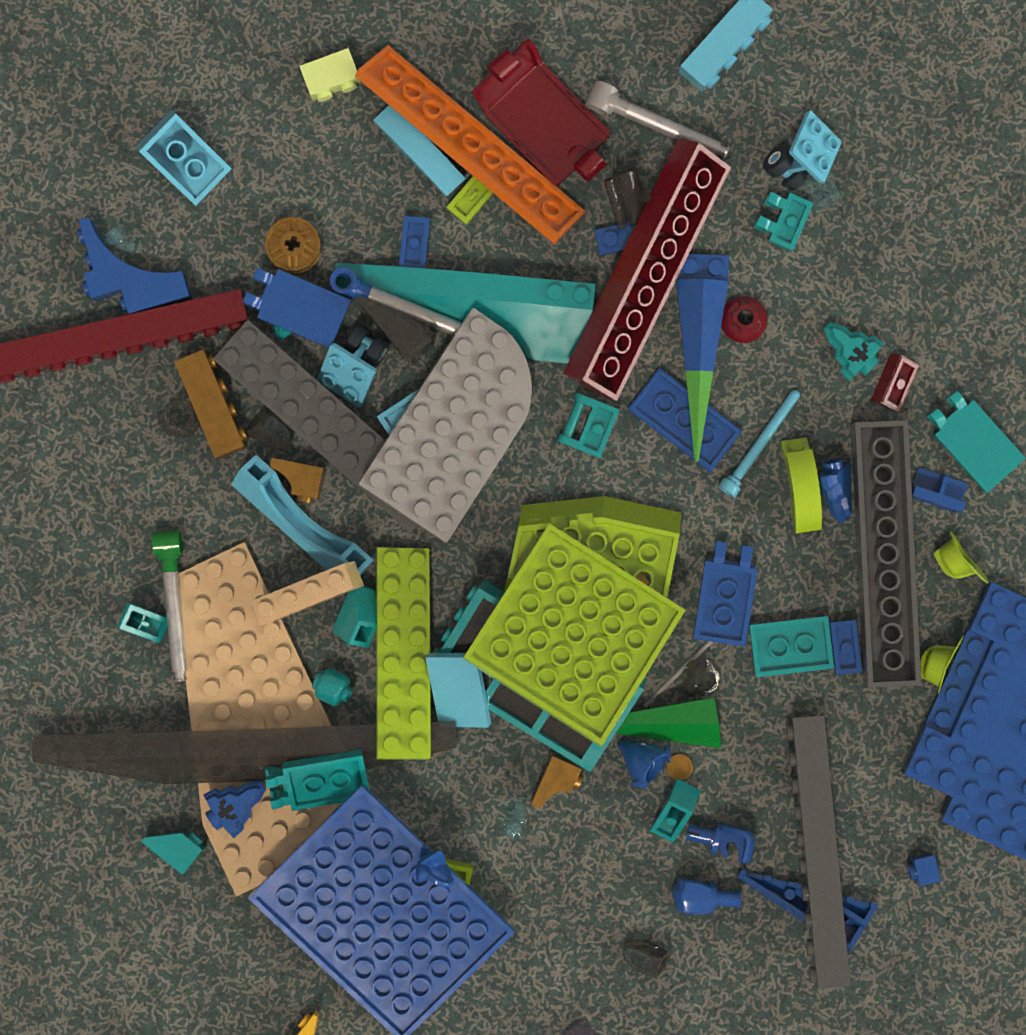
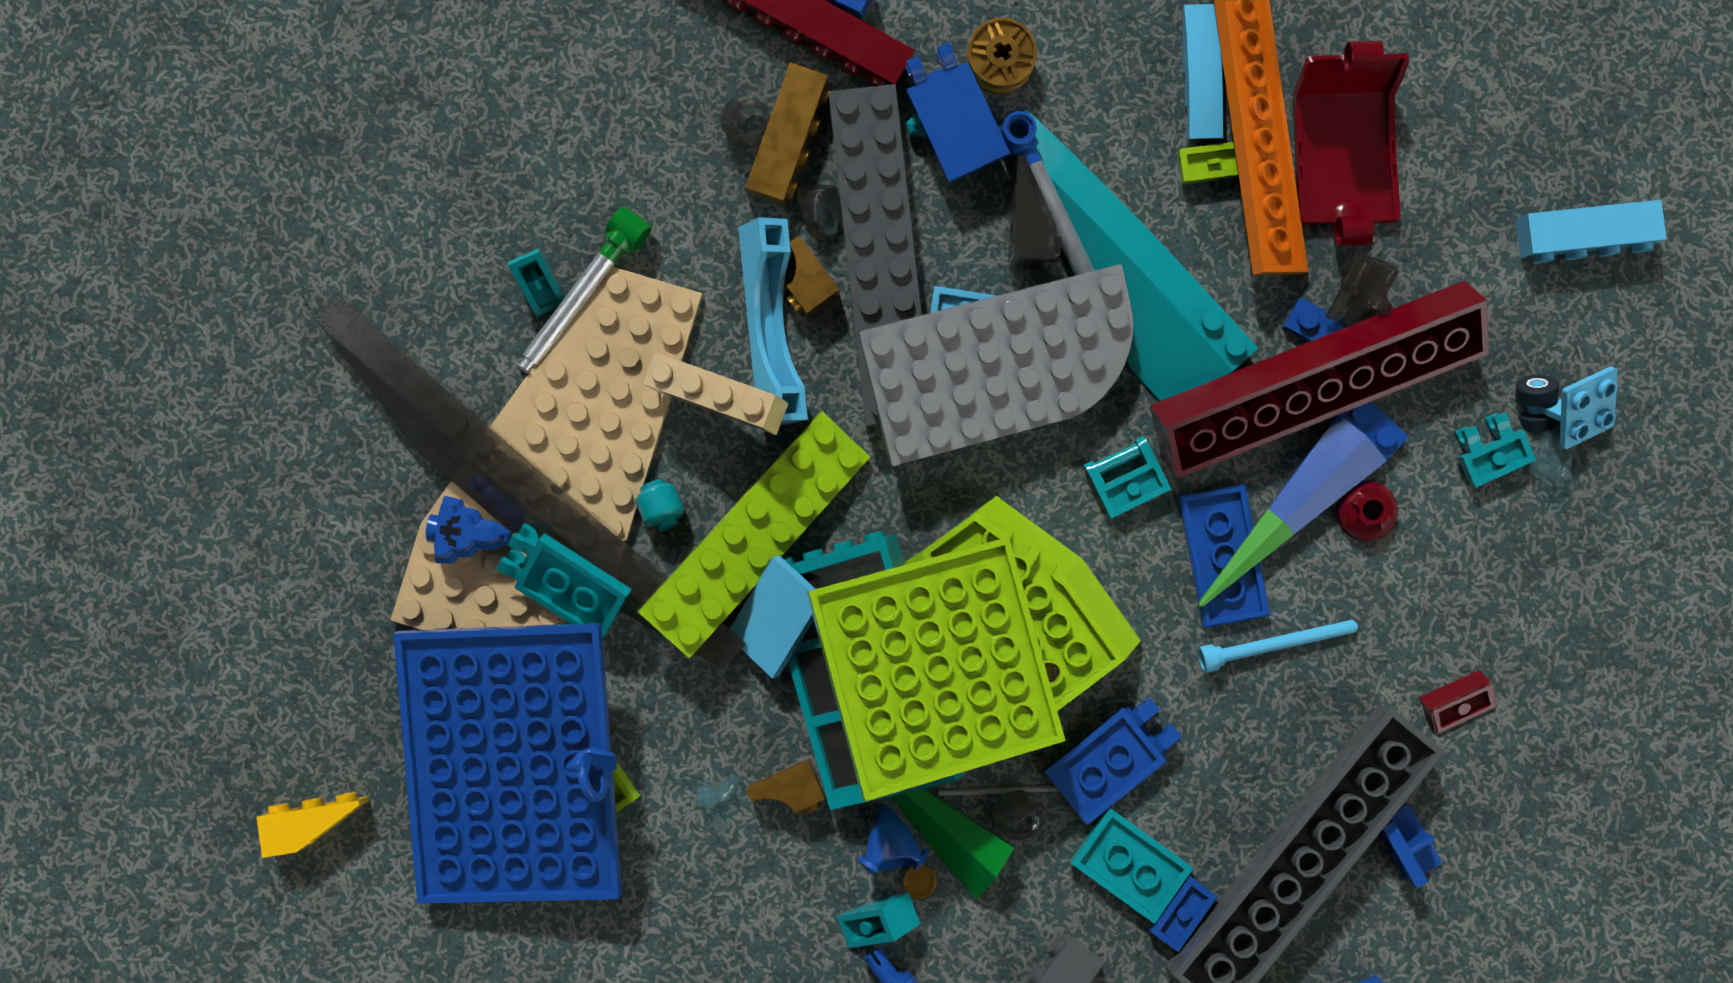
camera: 40 degrees right, 0 degrees up
(176, 848) = (374, 523): teal slope -> none
(346, 371) = (944, 217): medium azure plate -> none
(357, 617) = (743, 461): teal slope -> none
(414, 242) = (1119, 154): blue plate -> none
(605, 100) = (1422, 184): piece -> none
(803, 484) = (1285, 722): lime arch -> none
(836, 487) = (1312, 753): blue rock -> none
(853, 350) = (1447, 635): teal rock -> none
(955, 561) = (1364, 927): lime piece -> none
(975, 442) = (1485, 829): teal tile -> none

